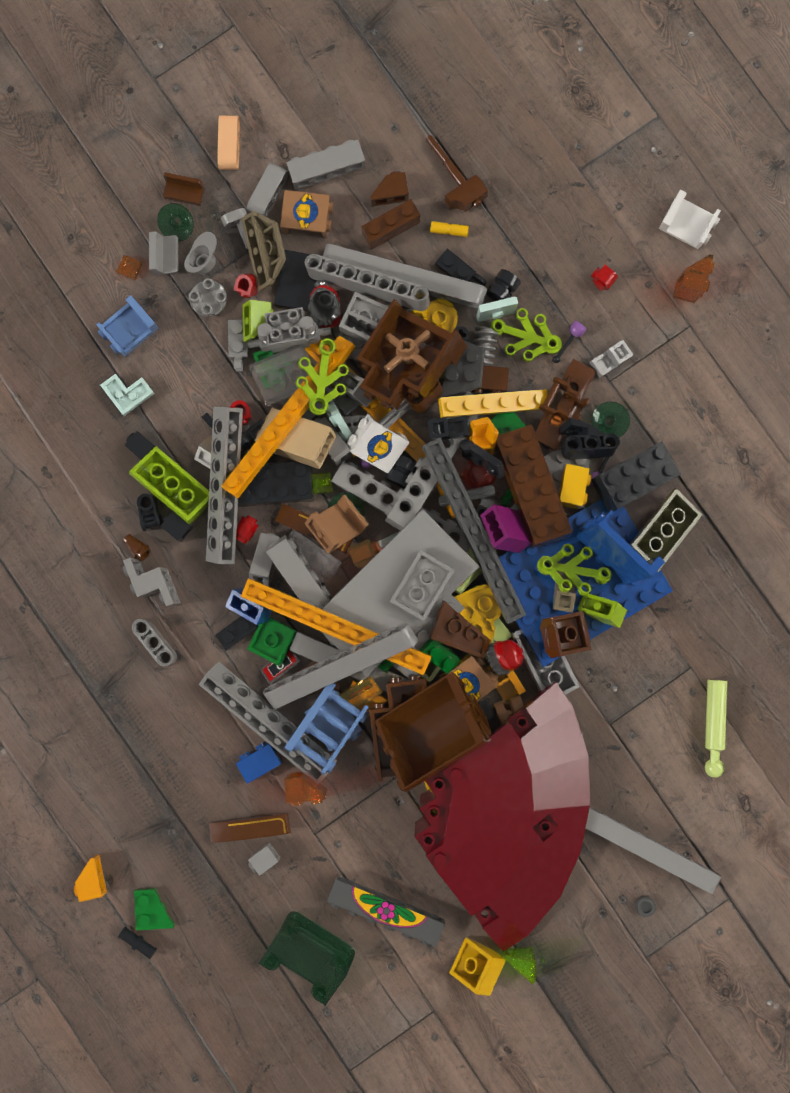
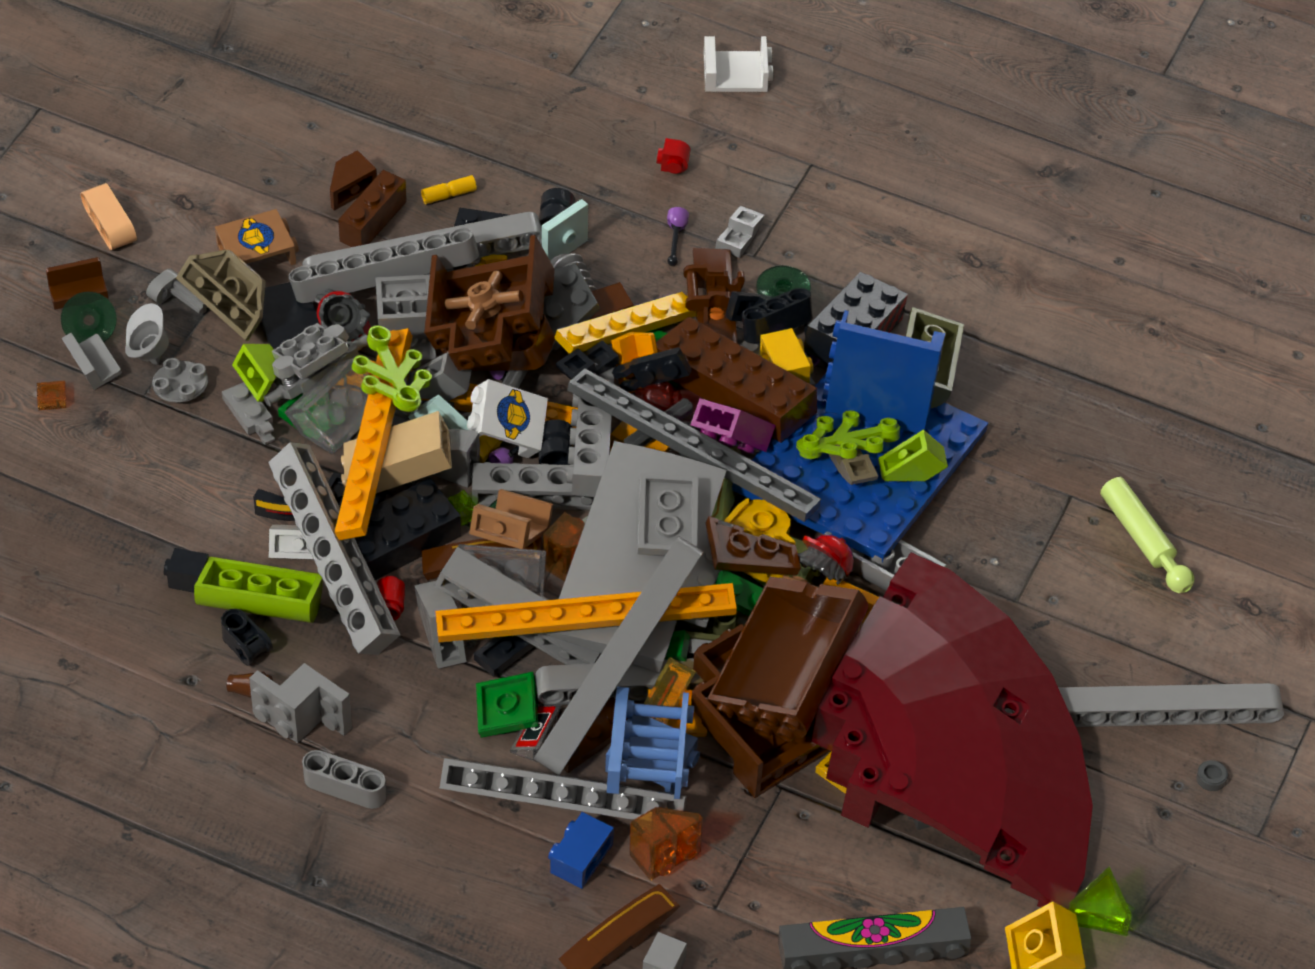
camera: 35 degrees left, 35 degrees down
(126, 398) = (132, 530): light aqua plate -> none
(127, 327) = (90, 452): medium blue panel -> none
(176, 526) = (292, 636): black brick -> none
(235, 632) = (450, 721): black plate -> none
(246, 285) = (224, 343): red plate -> none
(249, 610) = (452, 670): blue brick -> none
(267, 189) = (189, 236): light grey beam -> none
(326, 164) = (251, 186): light grey brick -> none
(468, 192) = (445, 148): reddish brown piece -> none
(529, 336) = (651, 248): lime plant -> none
(565, 634) = (883, 499): reddish brown slope -> none
(694, 280) = (783, 111): clear orange slope -> none

